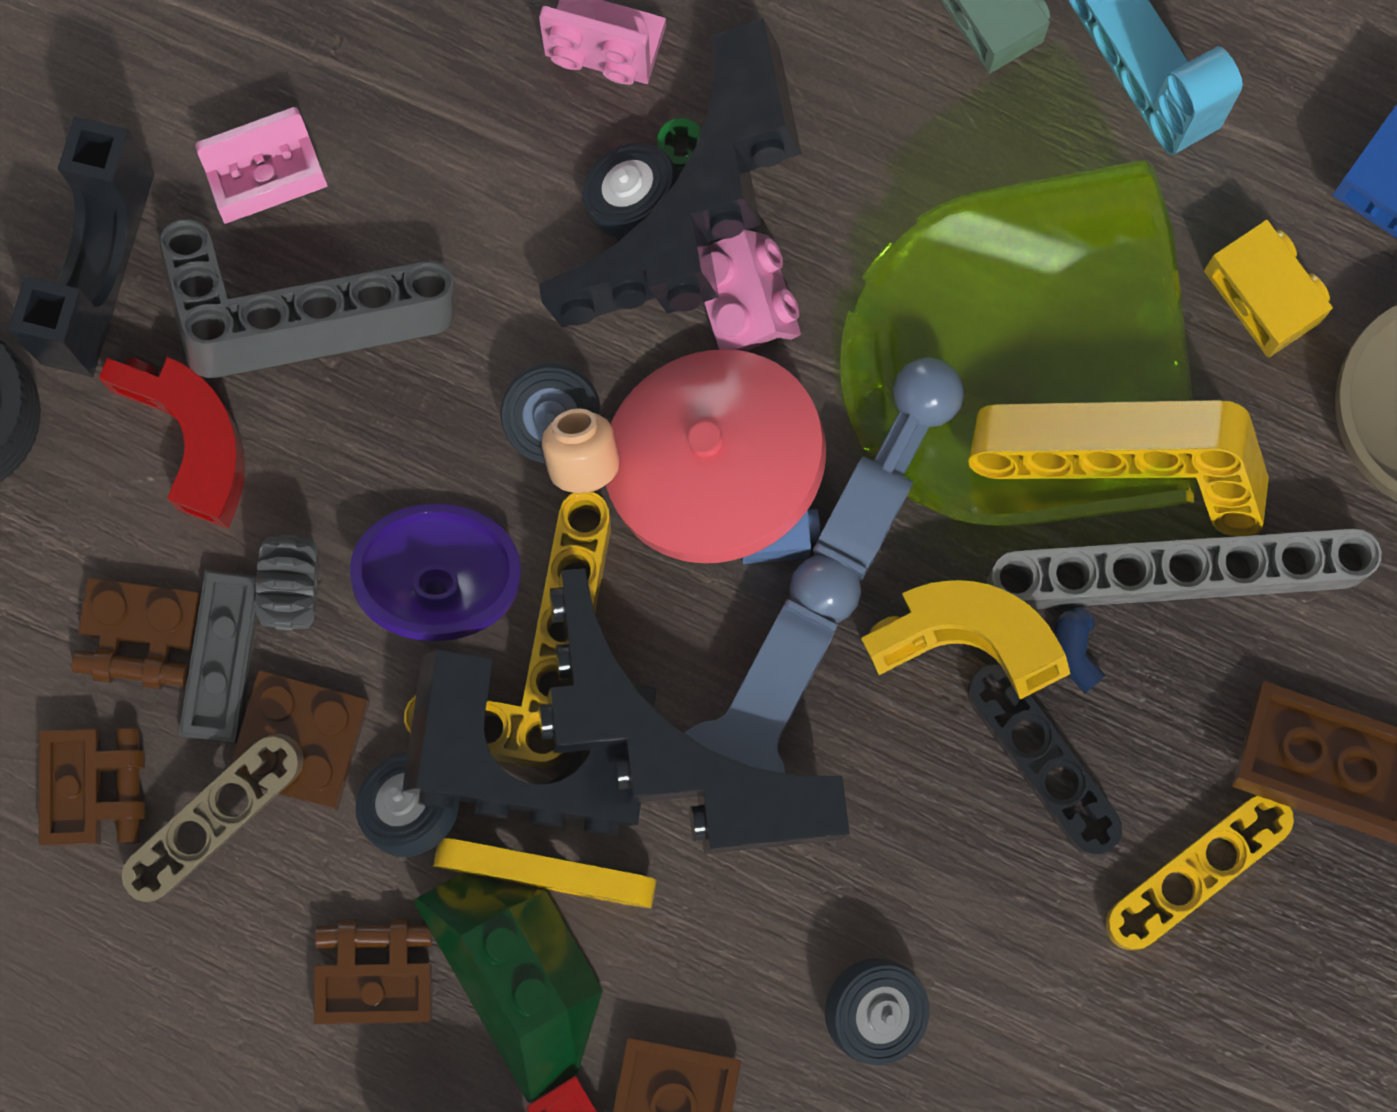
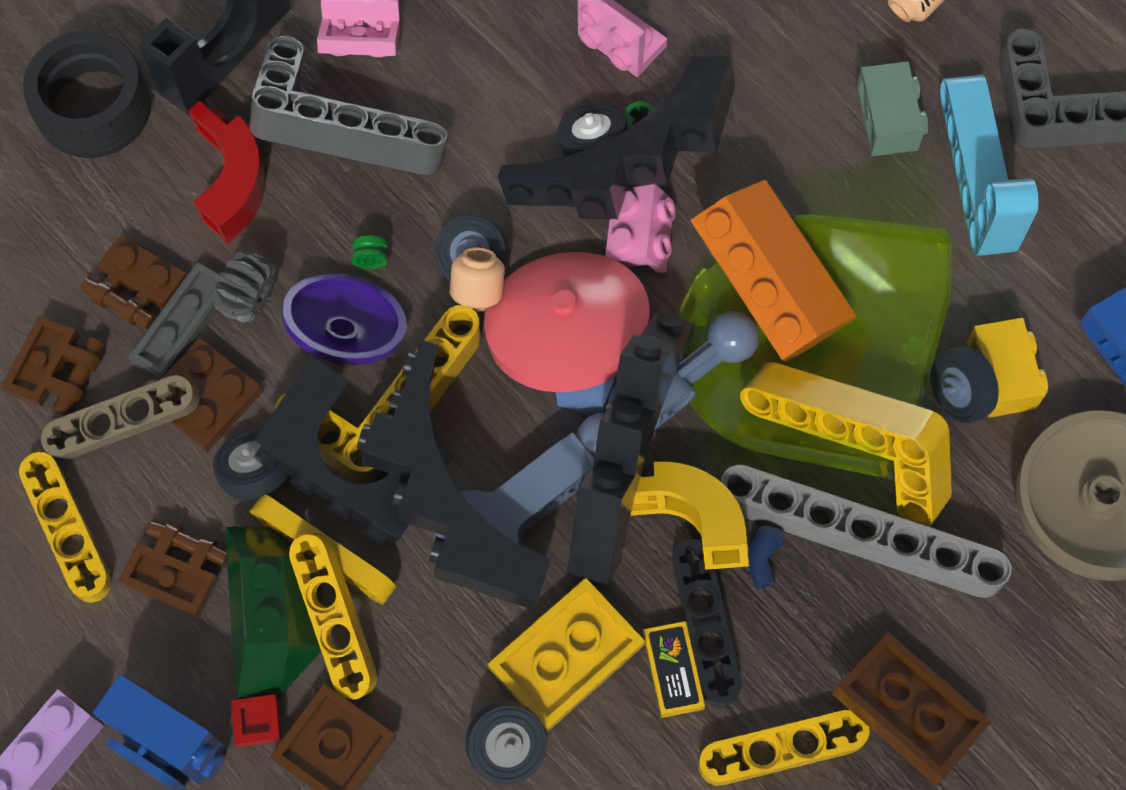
camera: 25 degrees right, 10 degrees down
(203, 989) = (69, 524): none -> yellow beam
(420, 467) = (369, 252): none -> green bush
(594, 956) = (326, 618): none -> yellow beam
(864, 585) = (622, 446): none -> black arch
(898, 873) = (566, 654): none -> yellow plate
(945, 288) = (773, 269): none -> orange slope
(1031, 834) = (673, 669): none -> tile
(1231, 335) = (964, 384): none -> black wheel

